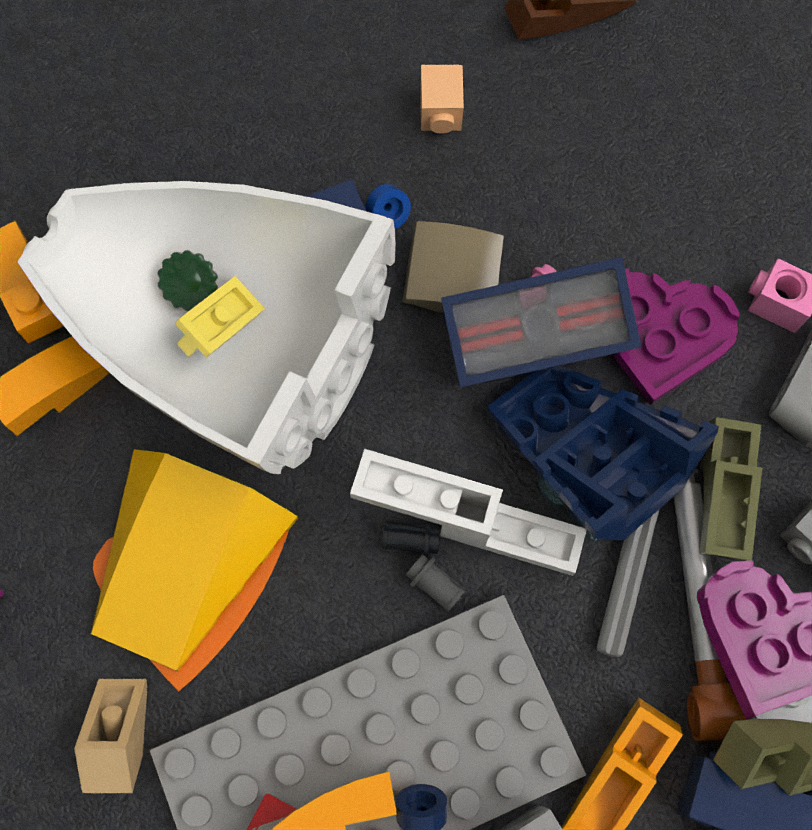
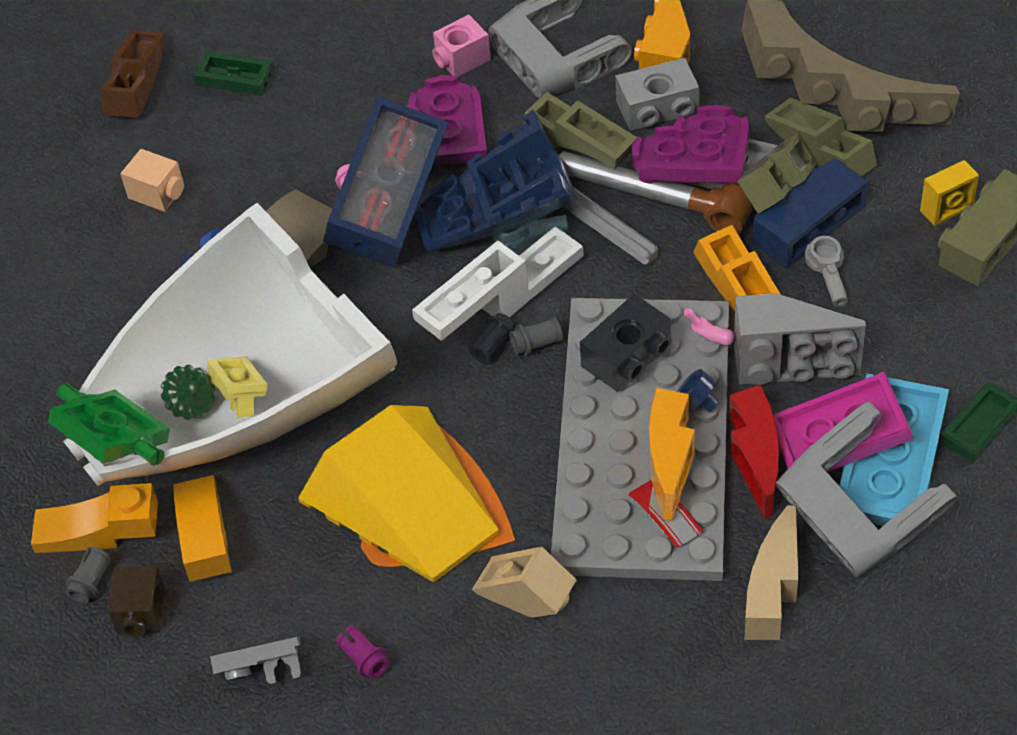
camera: 55 degrees left, 20 degrees down
(66, 238) = (108, 425): none -> green plate
(481, 693) = (626, 343): none -> black brick
(522, 778) = (707, 330): none -> bright pink piece
(640, 88) = (231, 77): none -> dark green tile

